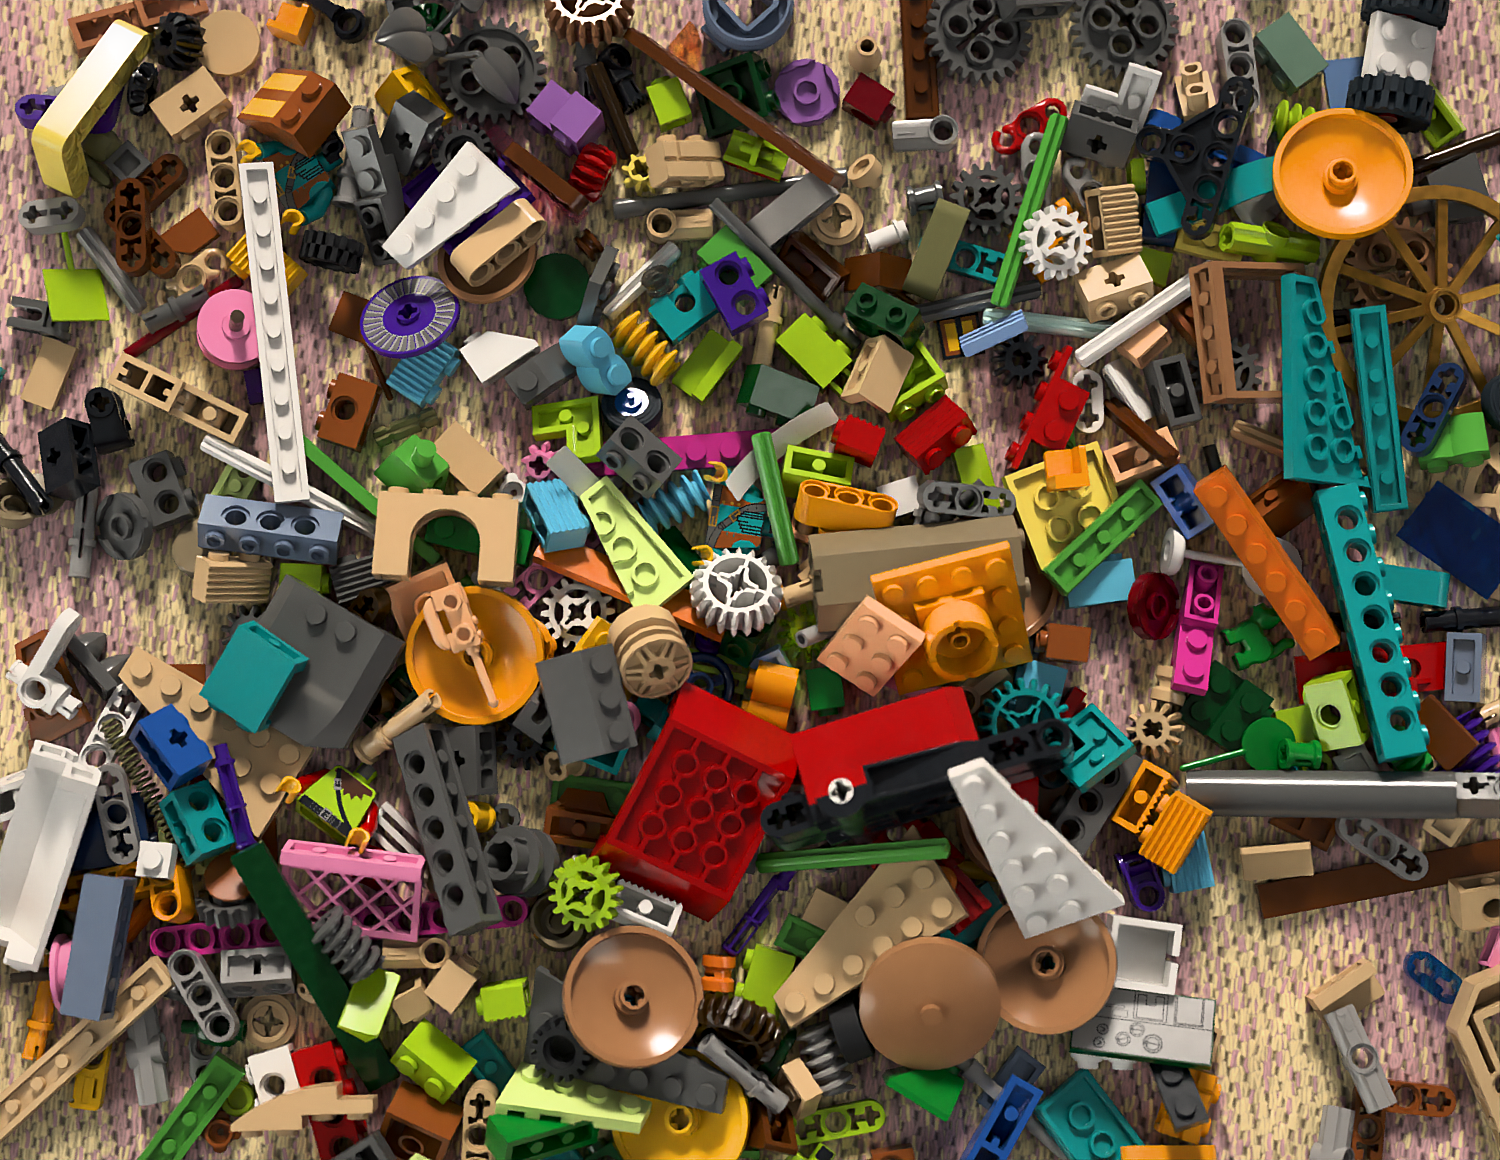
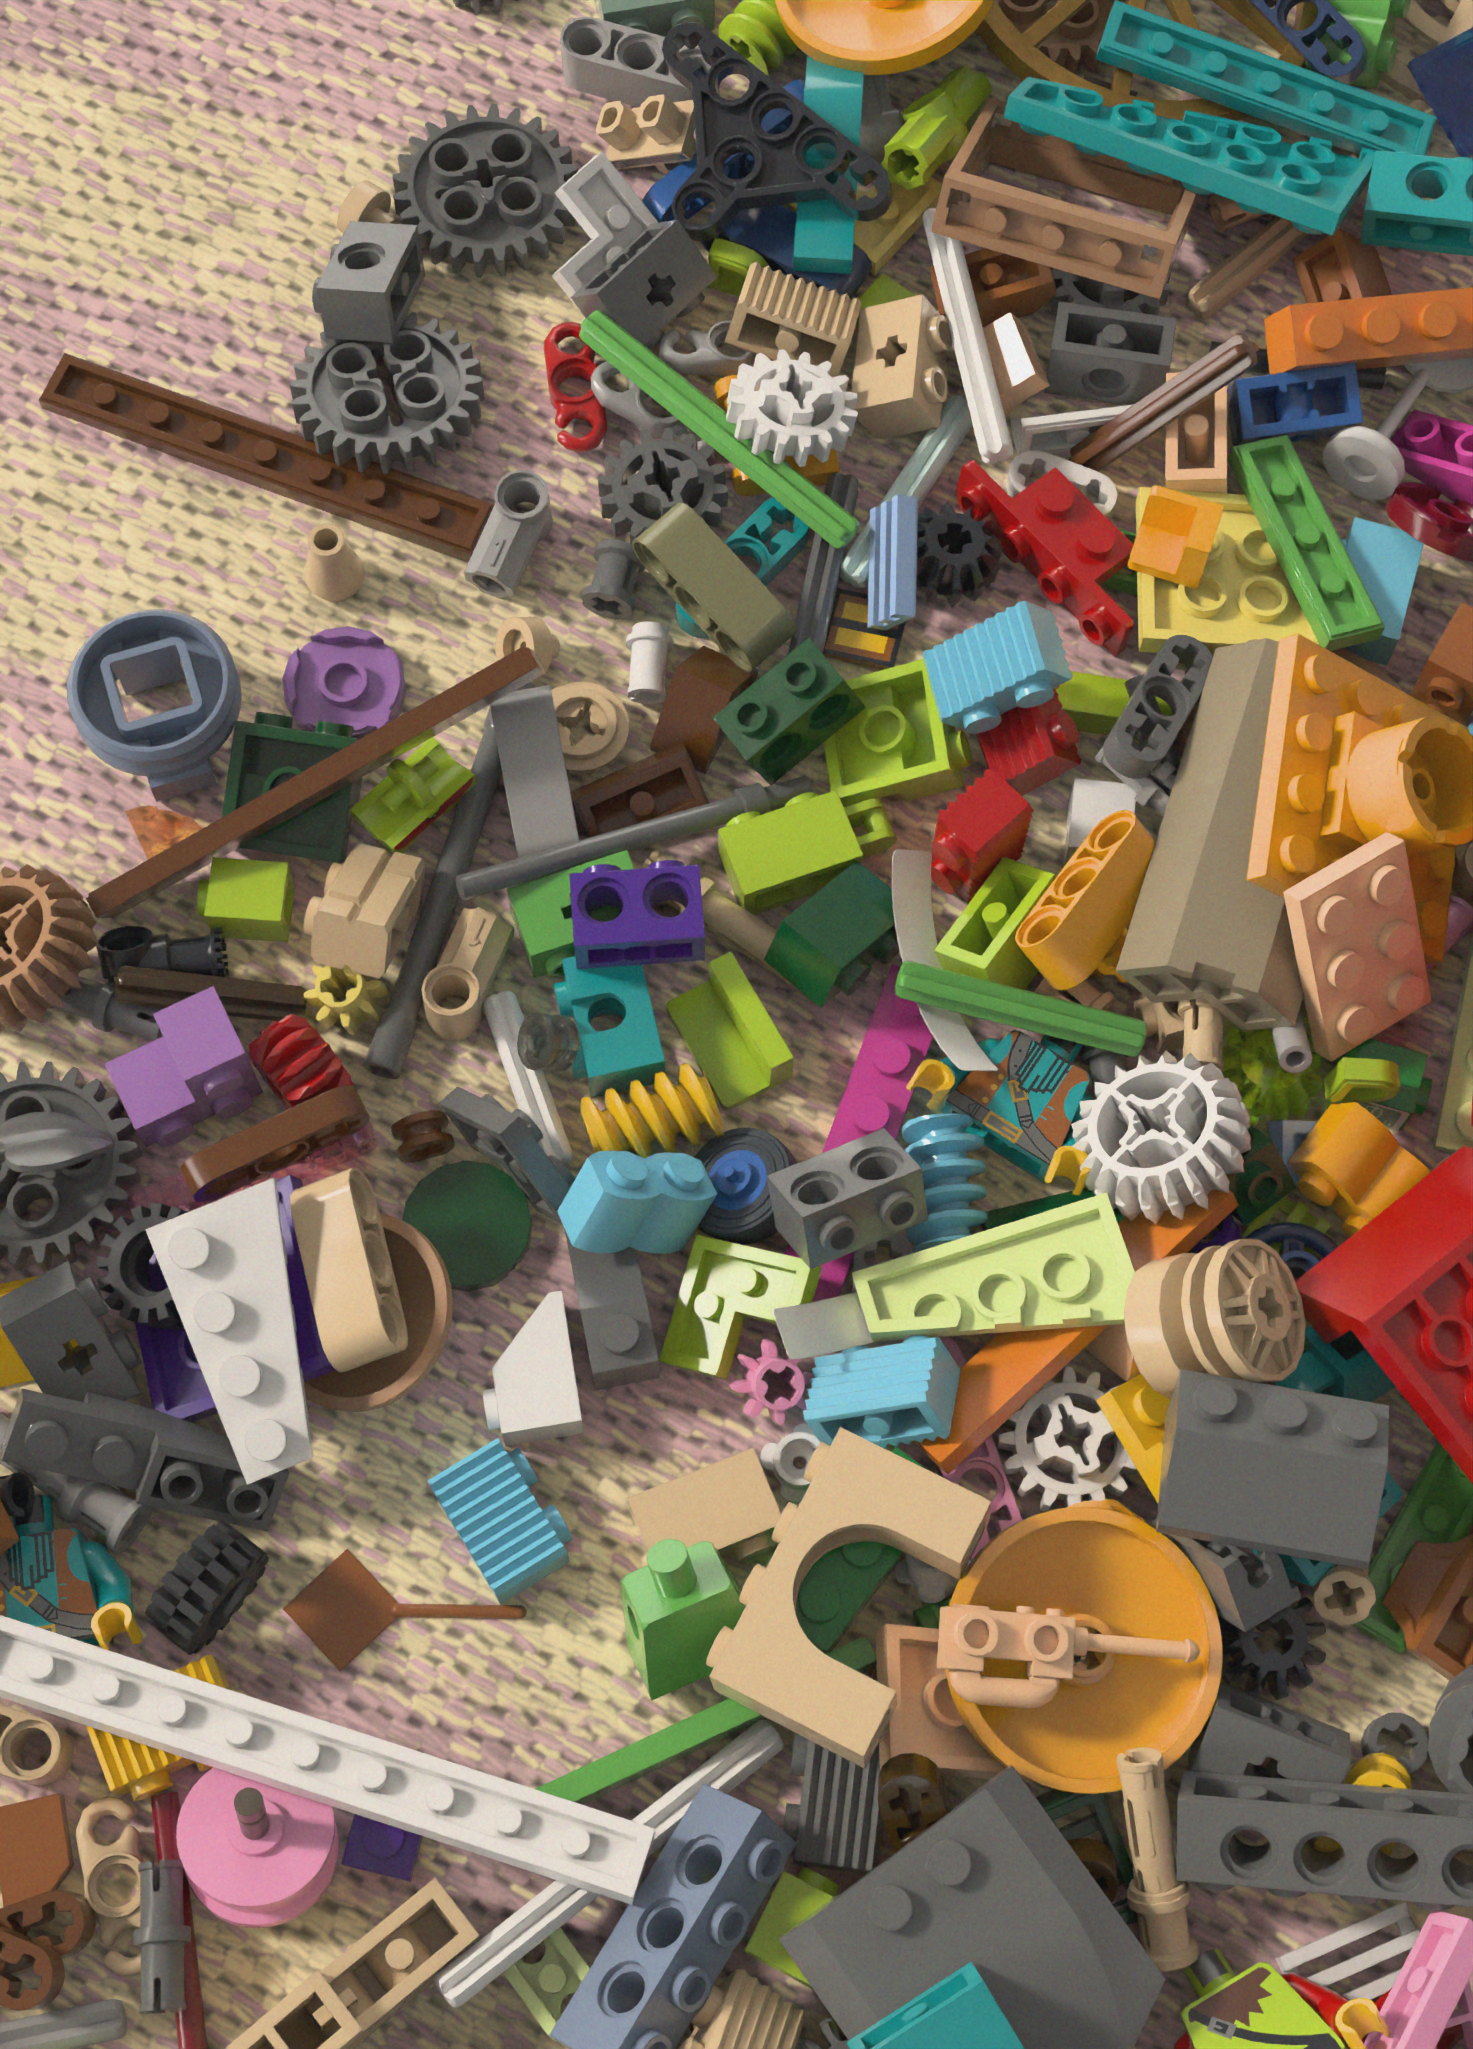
camera: 65 degrees left, 15 degrees down
(350, 432) = (503, 1655): dark orange brick -> none
(388, 323) = (407, 1547): piece -> none
(405, 427) = (589, 1605): olive axle -> none
(811, 679) = (1362, 1081): none -> lime tile
(869, 101) = (413, 592): dark red brick -> none
(878, 373) = (878, 759): tan panel -> none
(946, 410) = (997, 667): none -> medium azure brick

